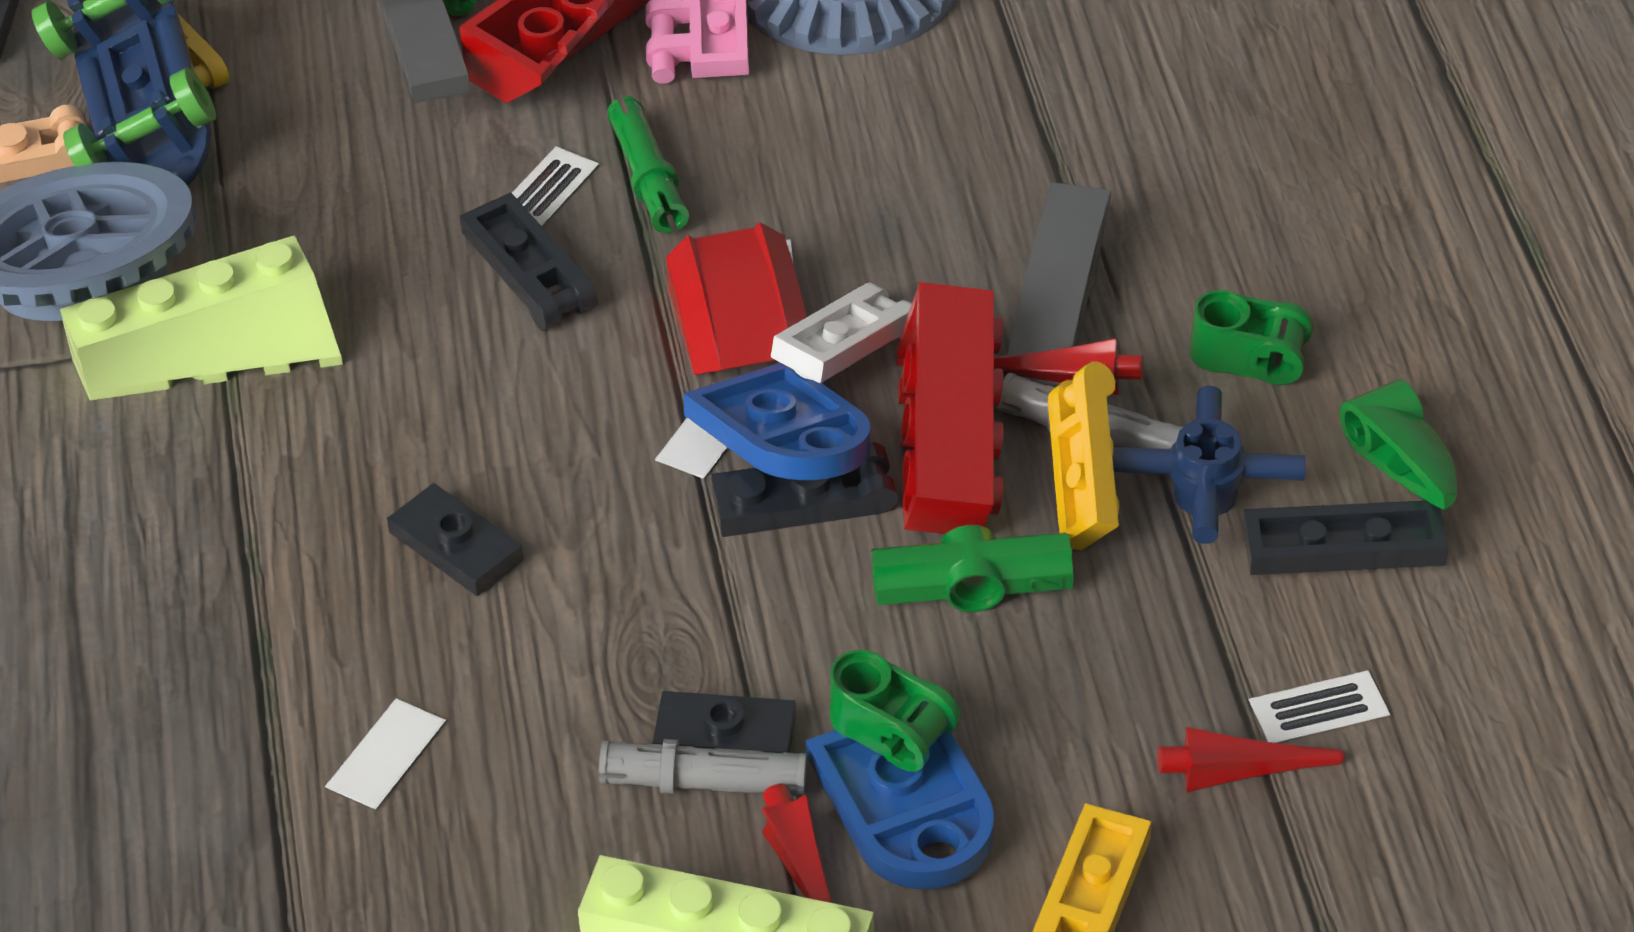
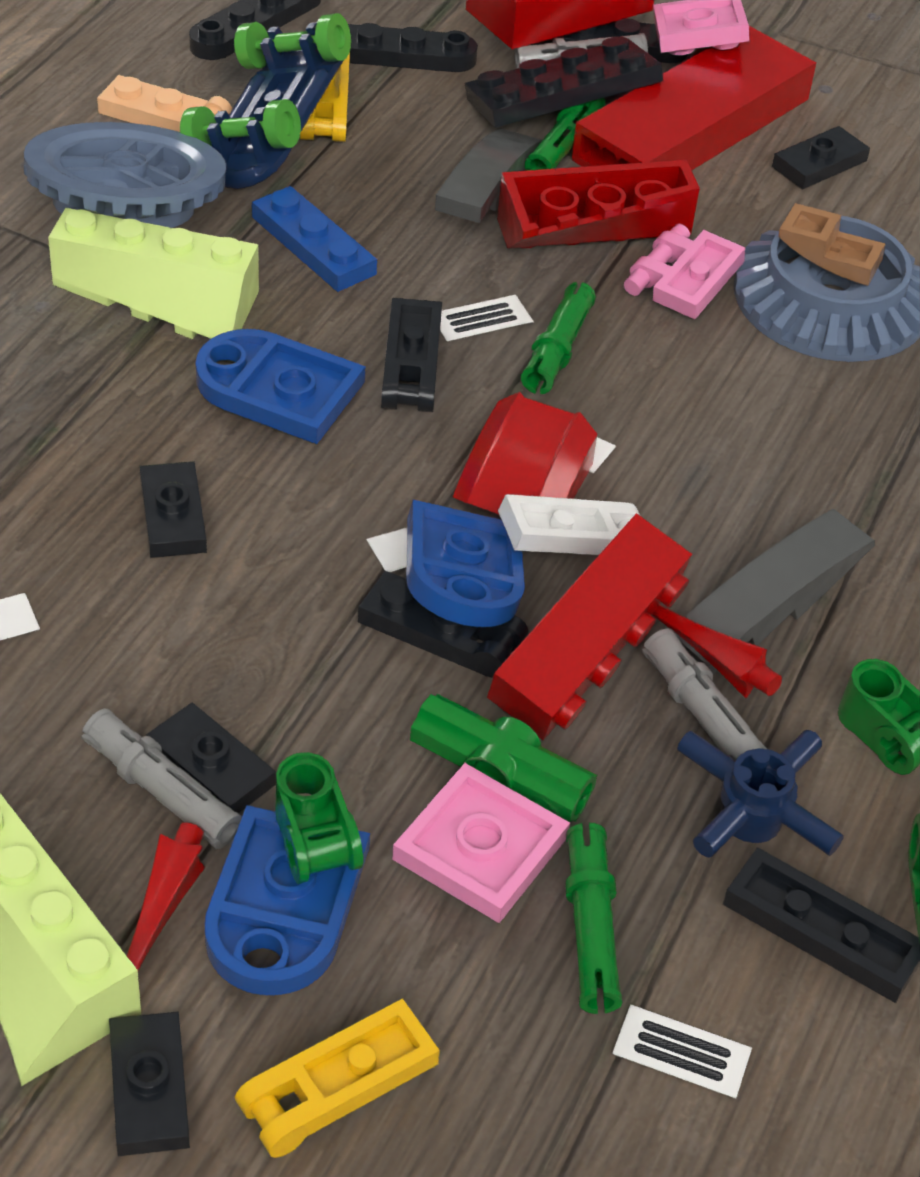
camera: 30 degrees right, 0 degrees up
(306, 201) = (314, 238): none -> blue plate
(428, 362) = (277, 381): none -> blue plate
(1020, 647) = (481, 842): none -> bright pink plate
(1083, 455) = (661, 725): yellow plate -> none
(1146, 630) = (591, 892): none -> green pin
(1221, 758) = (552, 1037): red piece -> none

